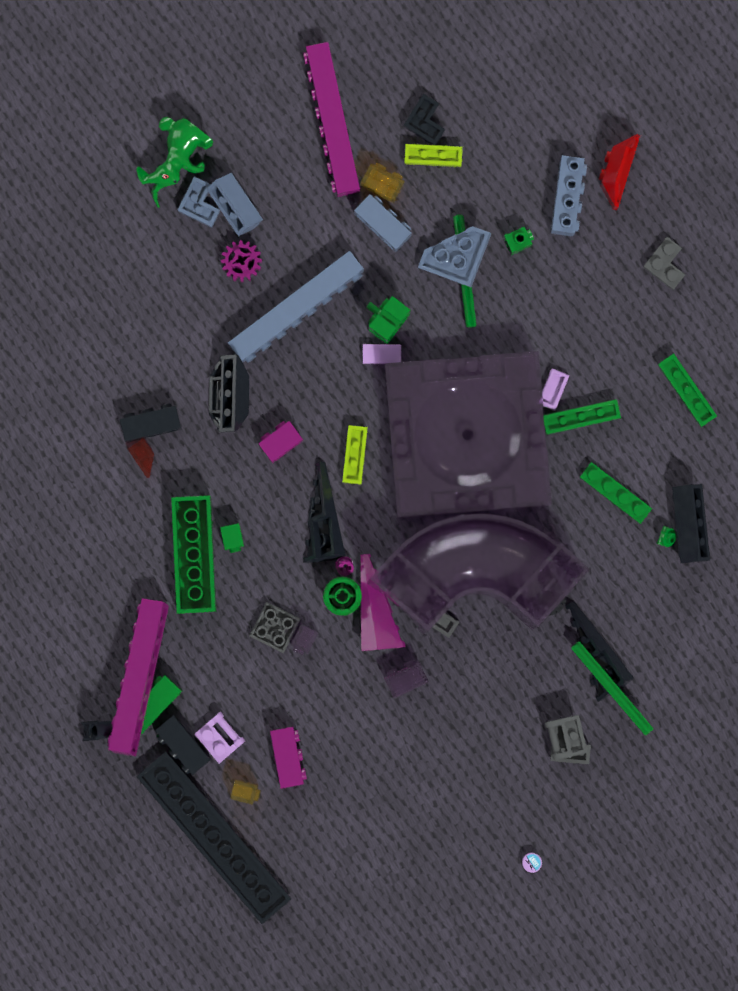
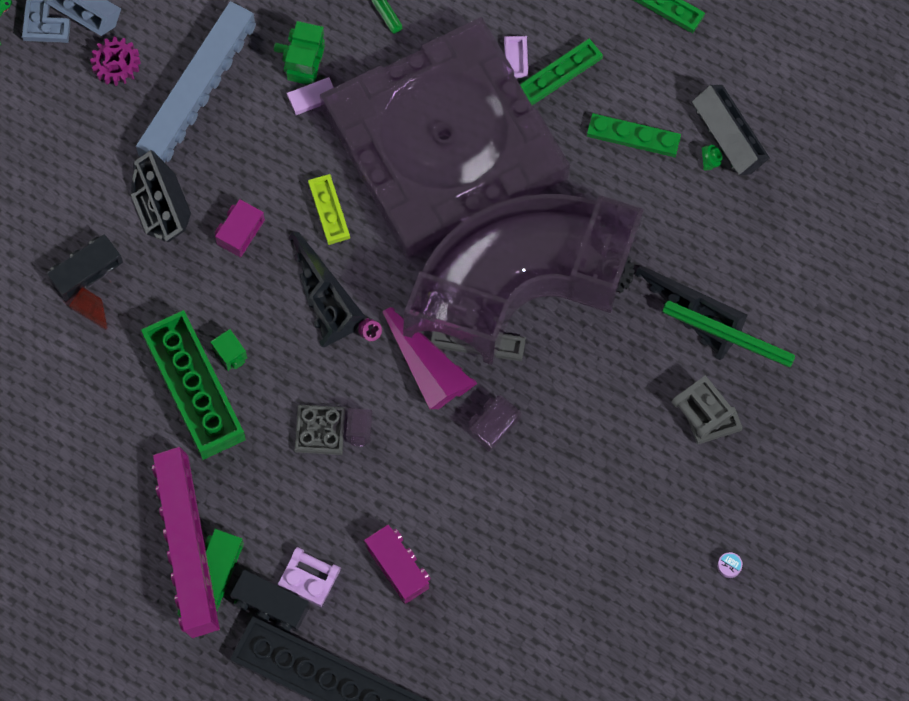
camera: 20 degrees left, 15 degrees down
(96, 730) = (161, 625): black piece -> none
(245, 792) = (365, 623): clear yellow brick -> none
(342, 596) = (381, 359): green cone -> none

